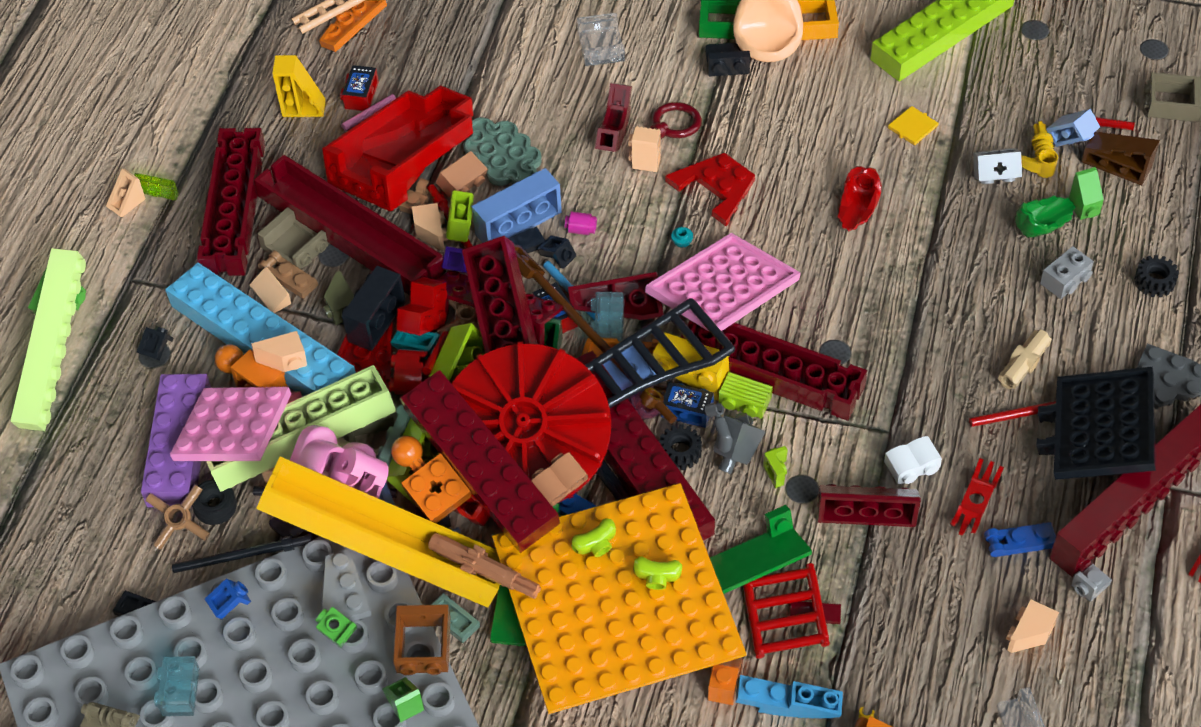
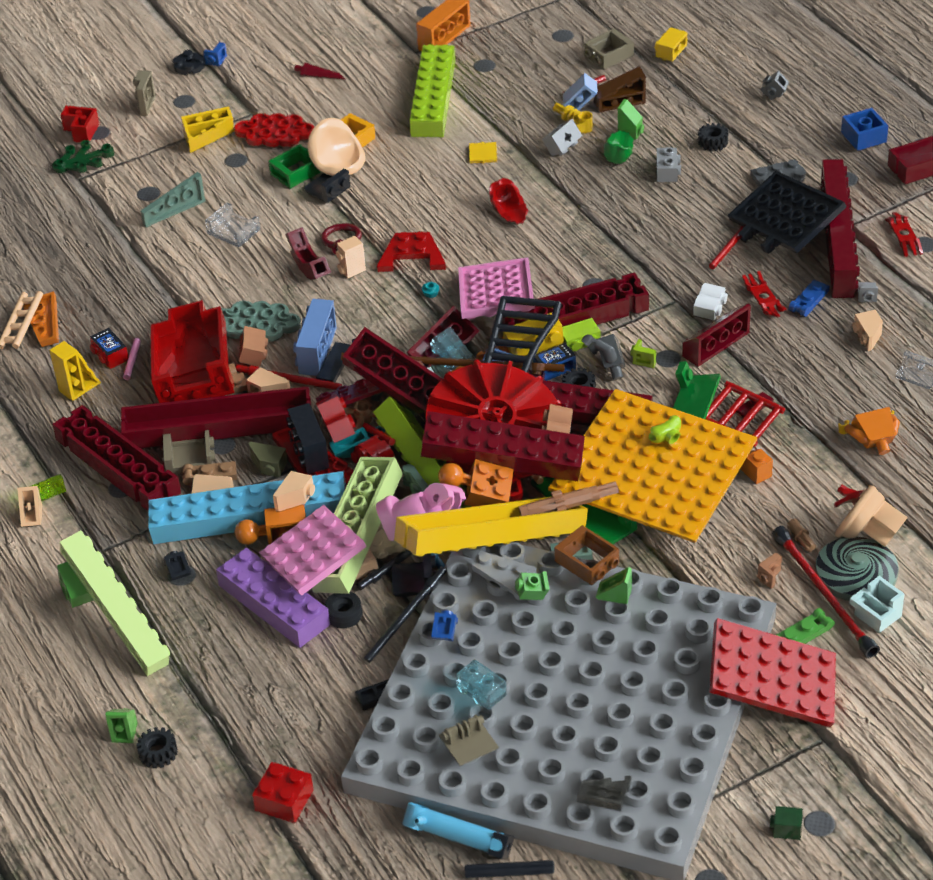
camera: 45 degrees left, 10 degrees down
(169, 512) = (332, 636): medium nougat bar -> none
(454, 259) = (317, 385): dark purple brick -> none
(459, 216) = (287, 362): lime brick -> none
(581, 223) = (361, 320): dark pink brick -> none
(595, 540) = (614, 440): lime piece -> none
(791, 700) = (801, 447): dark azure slope -> none
(1024, 359) = (700, 218): tan piece -> none

